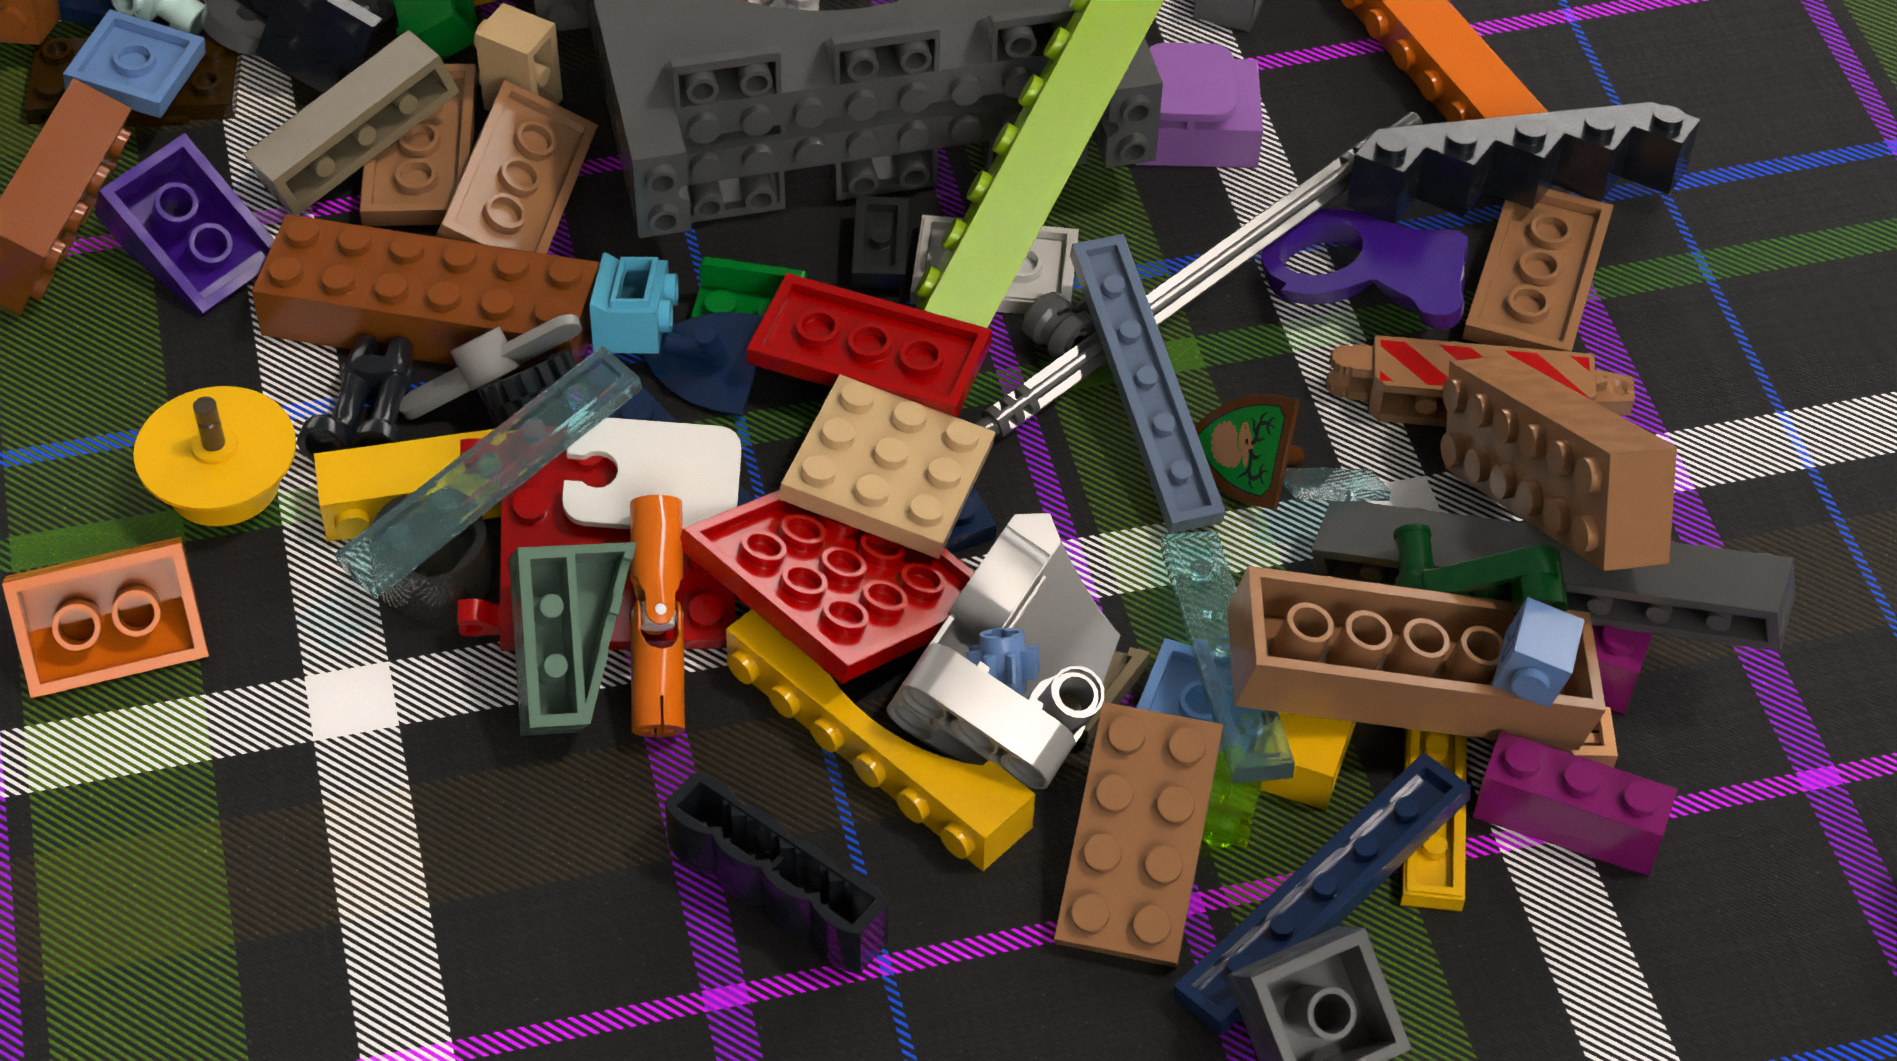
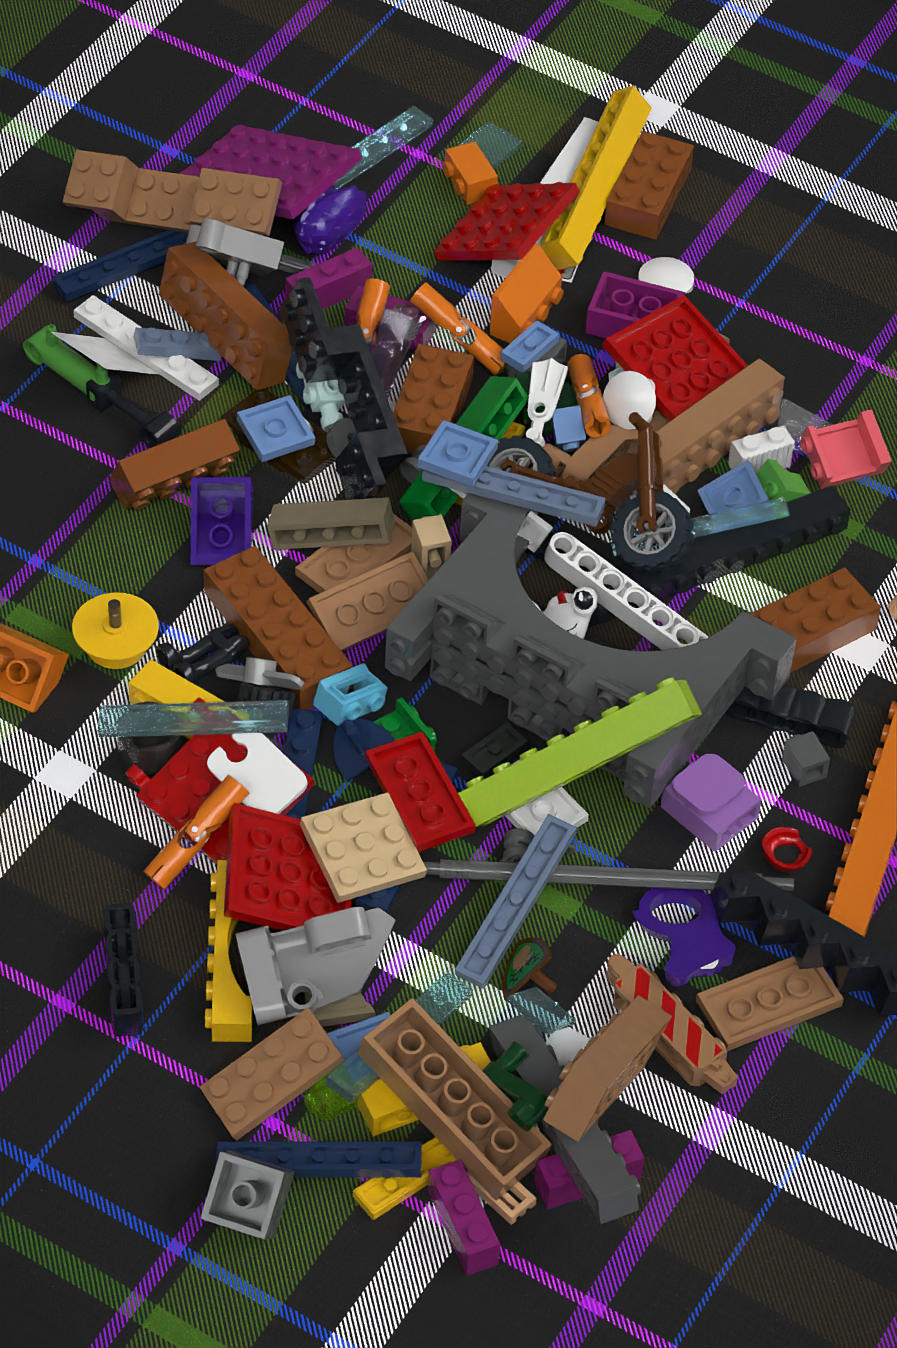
camera: 45 degrees right, 0 degrees up
(563, 628) = (151, 808): sand green wedge -> none
(1007, 657) = (298, 961): medium blue gear -> none
(1316, 86) = (785, 837): none -> red piece
(1538, 652) = (490, 1134): medium blue brick -> none

